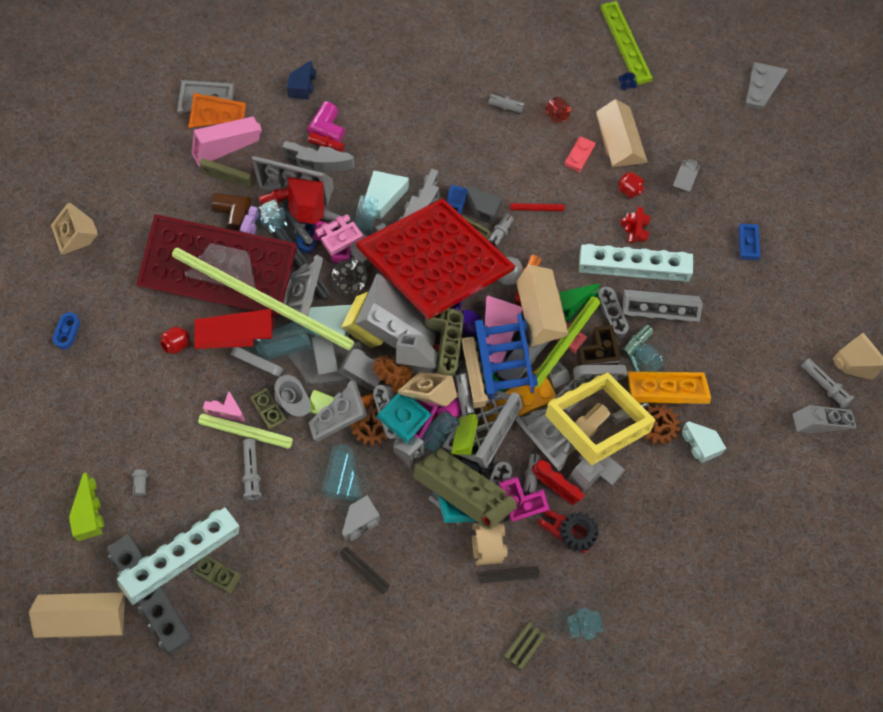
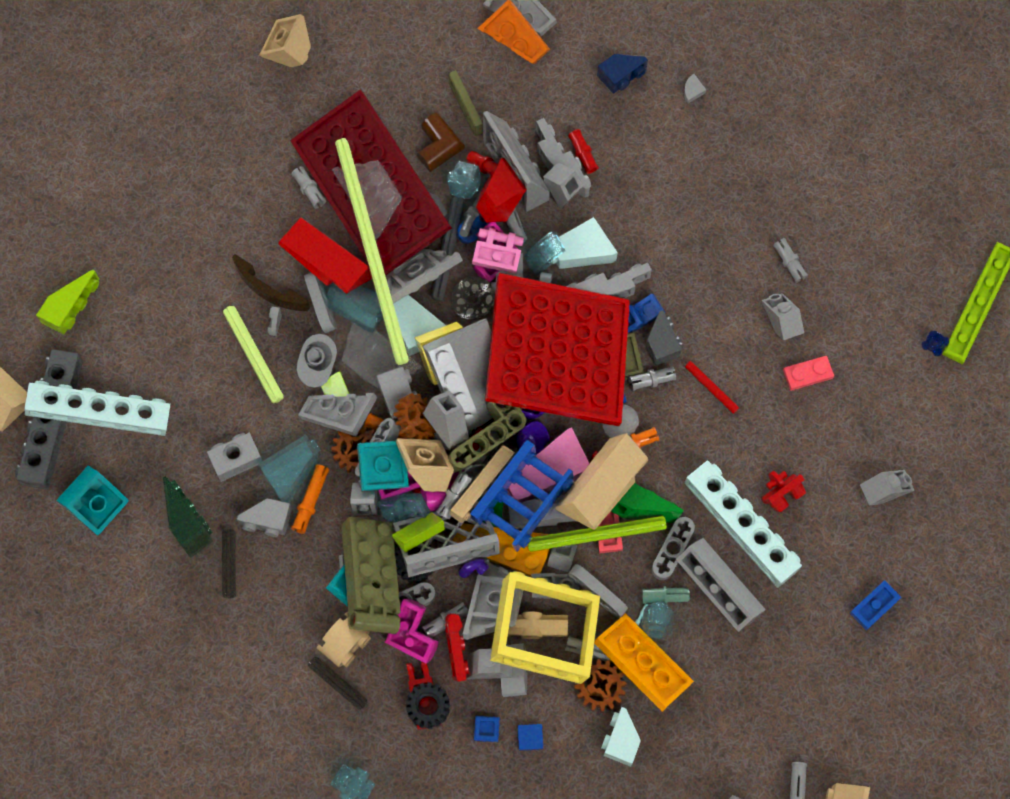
camera: 45 degrees right, 5 degrees up
(67, 332) = (196, 129): blue plate -> none
(139, 483) = (130, 318): light grey pin -> none
(174, 340) = (273, 220): red head -> none
(177, 302) = (308, 187): none -> light grey pin
(217, 574) = (115, 453): olive slope -> none
(224, 138) = (496, 68): bright pink slope -> none
(227, 411) = (256, 321): bright pink slope -> none
(233, 616) = (93, 500): none -> teal slope
(238, 377) = (290, 300): none -> dark brown slope
(238, 398) = (275, 315): none -> light grey tile
(248, 224) = (436, 170): lavender plate -> none
(250, 479) = (214, 398): light grey pin -> none
(268, 408) = (289, 352): olive slope -> none
(299, 513) = (226, 467): none -> light grey brick
(316, 571) = (188, 530): none -> clear green slope
(323, 122) = (599, 128): dark pink brick -> none
(324, 355) = (376, 351): light grey slope -> none
(337, 165) = (562, 183): none -> light grey slope
(353, 59) = (693, 89): none -> light grey tile
(378, 490) = (307, 506): none -> orange pin
(515, 427) = (477, 564): none -> dark purple arm
(535, 134) = (783, 316): none -> light grey slope
(535, 631) = (268, 755): olive tile -> none
(557, 109) = (832, 310): clear red head -> none
(604, 348) = (618, 576): dark brown brick -> none
(620, 135) = (868, 390): tan slope -> none
(622, 513) = (486, 729): none -> blue tile
(631, 185) = (821, 447): red head -> none
(651, 493) = (530, 737): none -> blue tile

